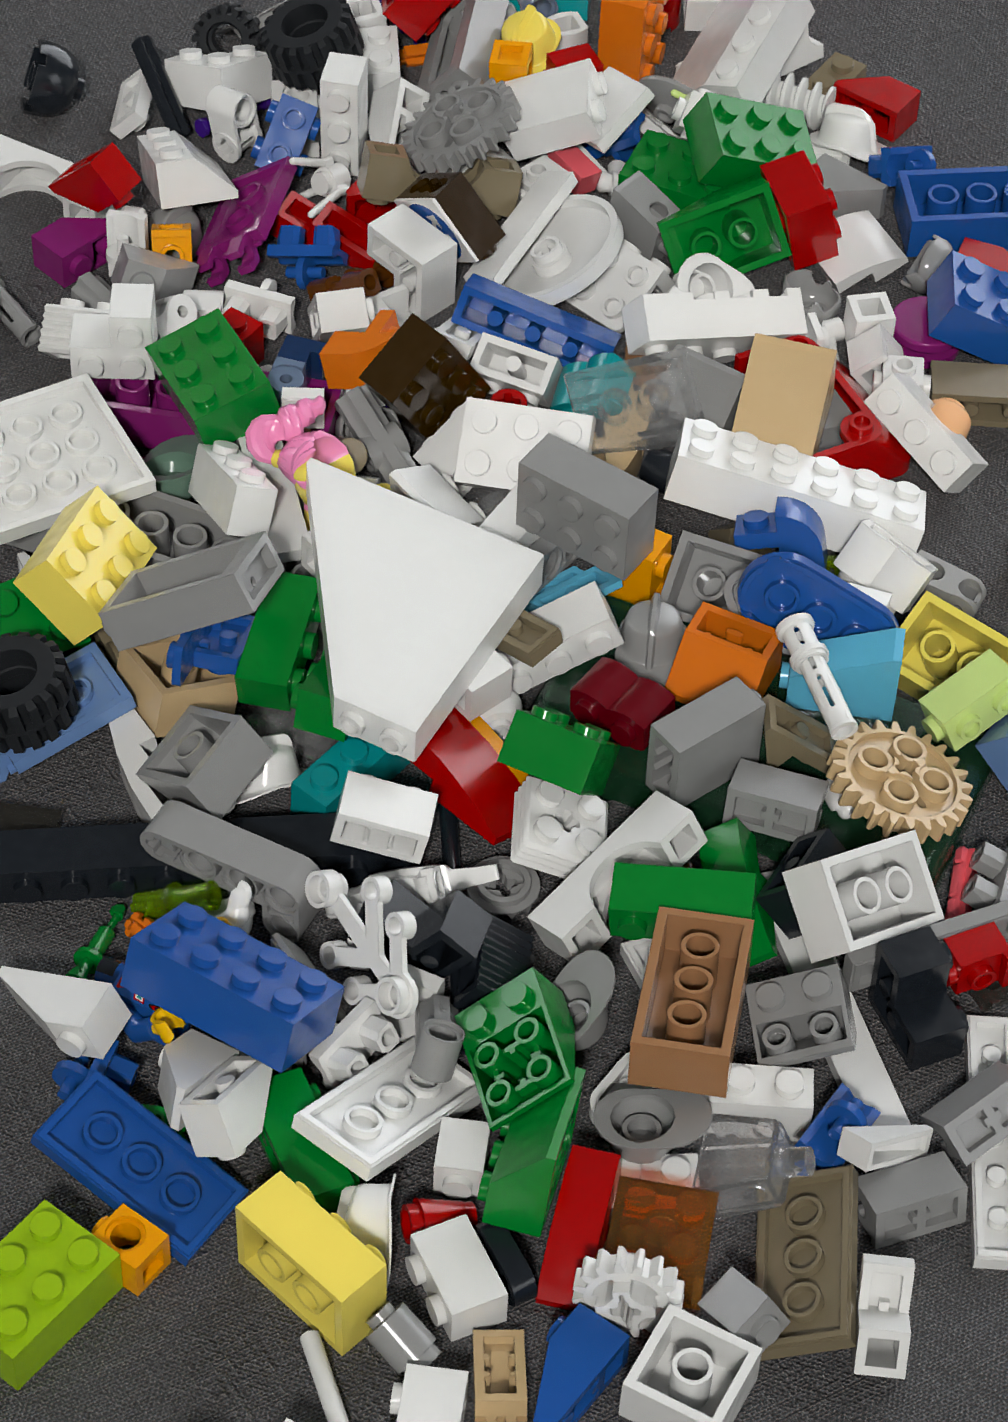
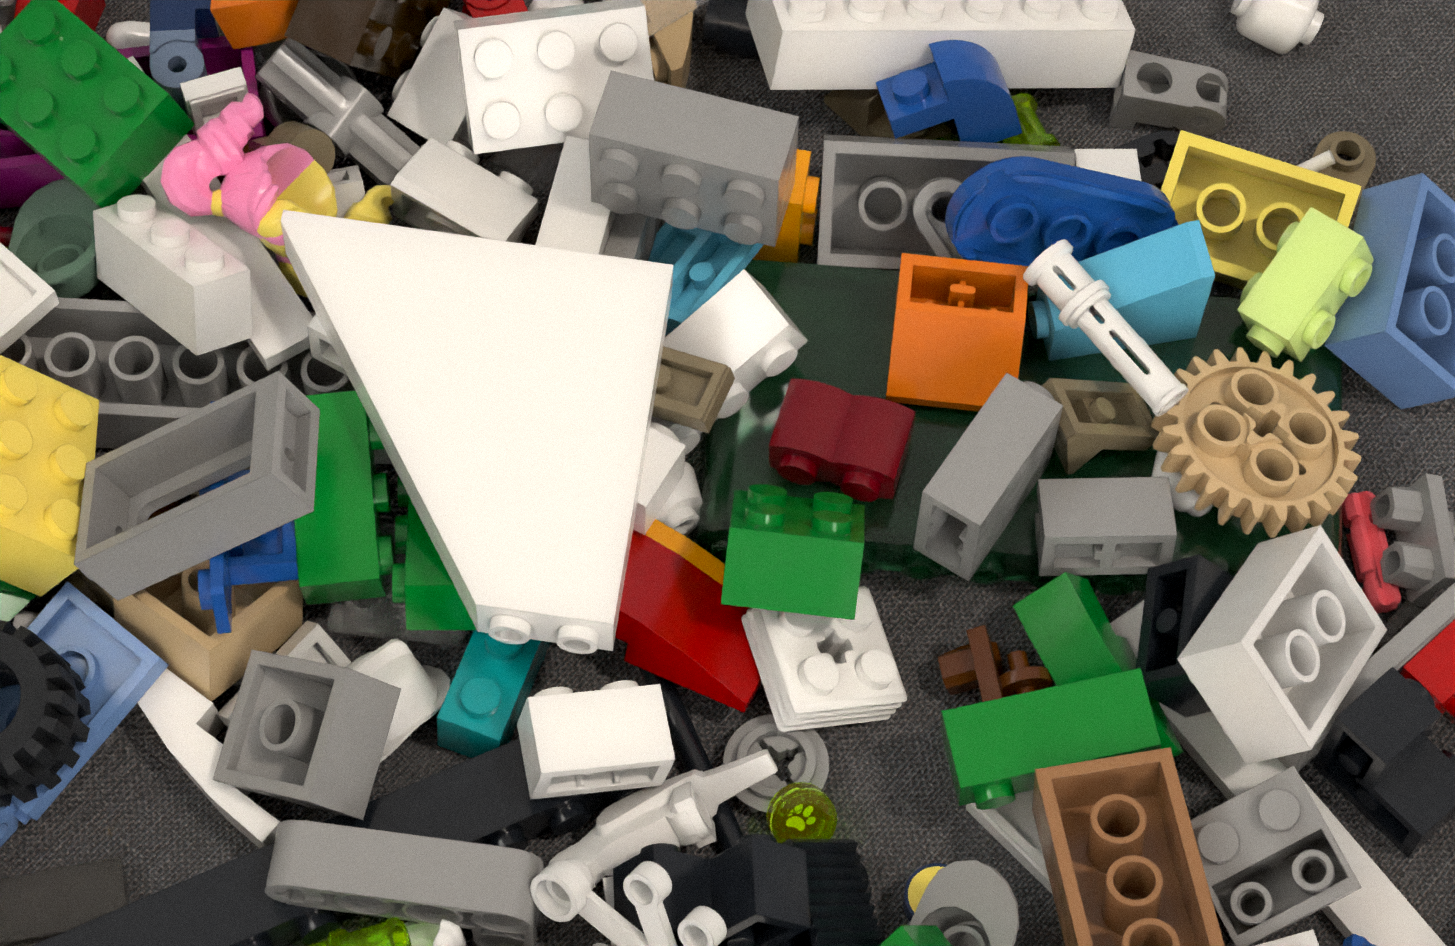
camera: 20 degrees left, 15 degrees up
(509, 909) = (801, 813): none -> clear neon green tile
(577, 910) = (967, 641): white arch -> none
(651, 639) = (844, 324): light grey piece -> none
(885, 564) = (1099, 98): white brick -> none

